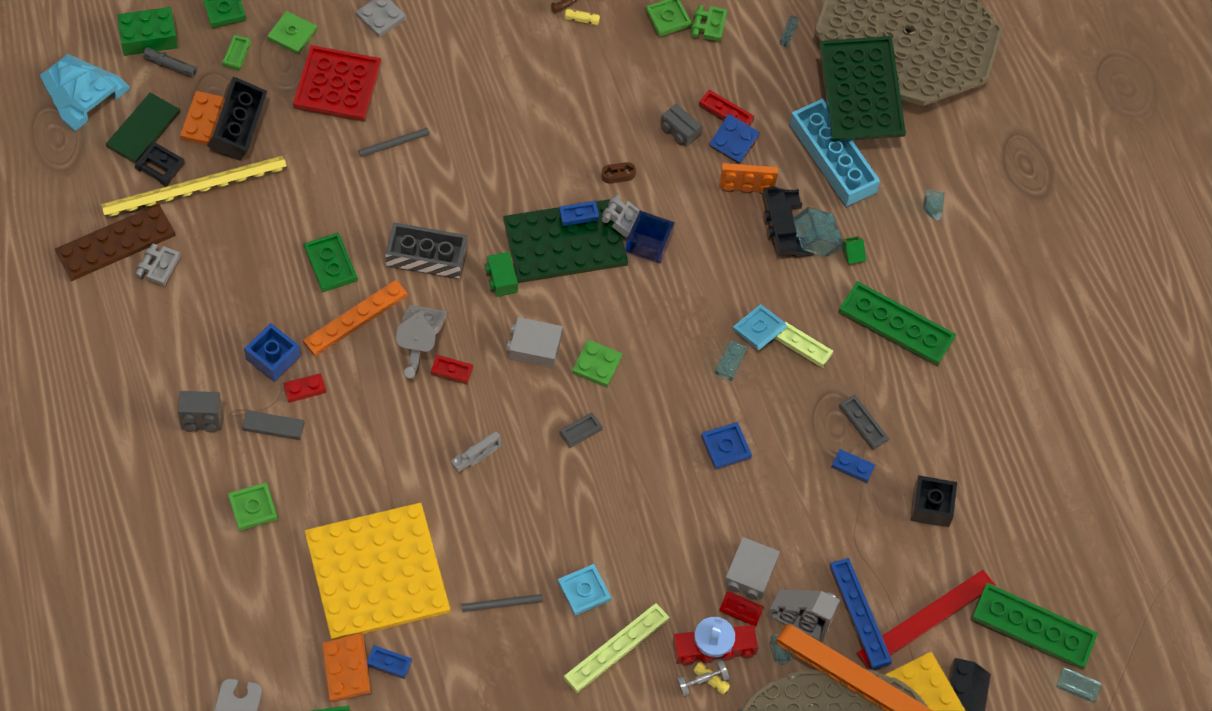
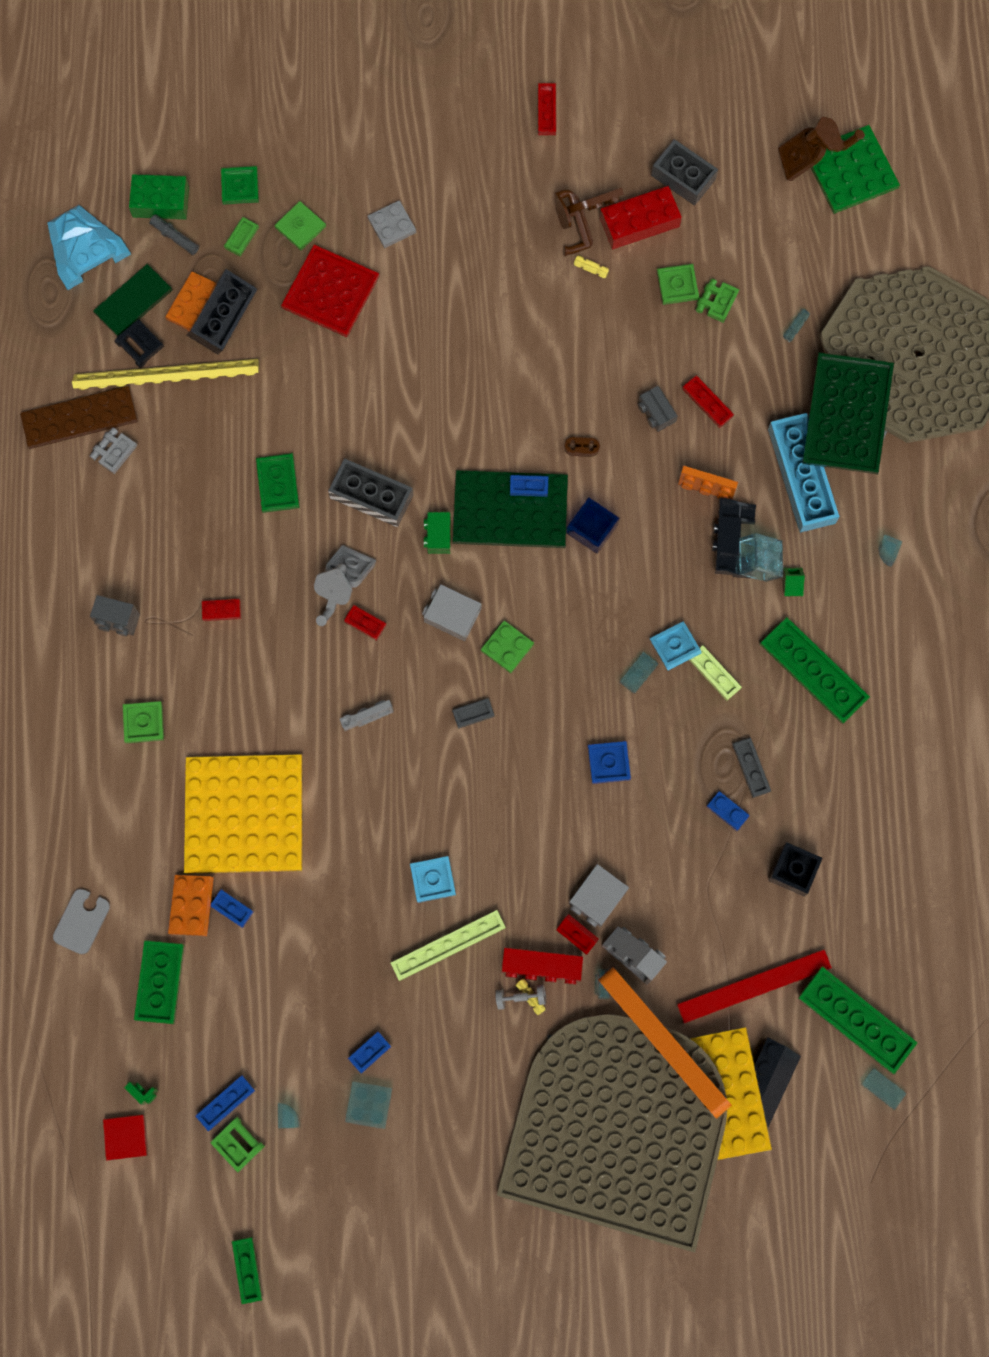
camera: 20 degrees right, 15 degrees up
(272, 352) = (197, 568): blue brick -> none
(273, 425) = (182, 642): dark grey tile -> none
(355, 318) = (287, 547): orange plate -> none
(393, 142) = (370, 366): dark grey bar -> none
(502, 602) = (352, 873): dark grey bar -> none
(625, 219) = (574, 500): light grey plate -> none
(714, 636) = (541, 961): light blue tile -> none
(734, 138) = (707, 435): blue plate -> none
(860, 614) = (690, 967): blue plate -> none

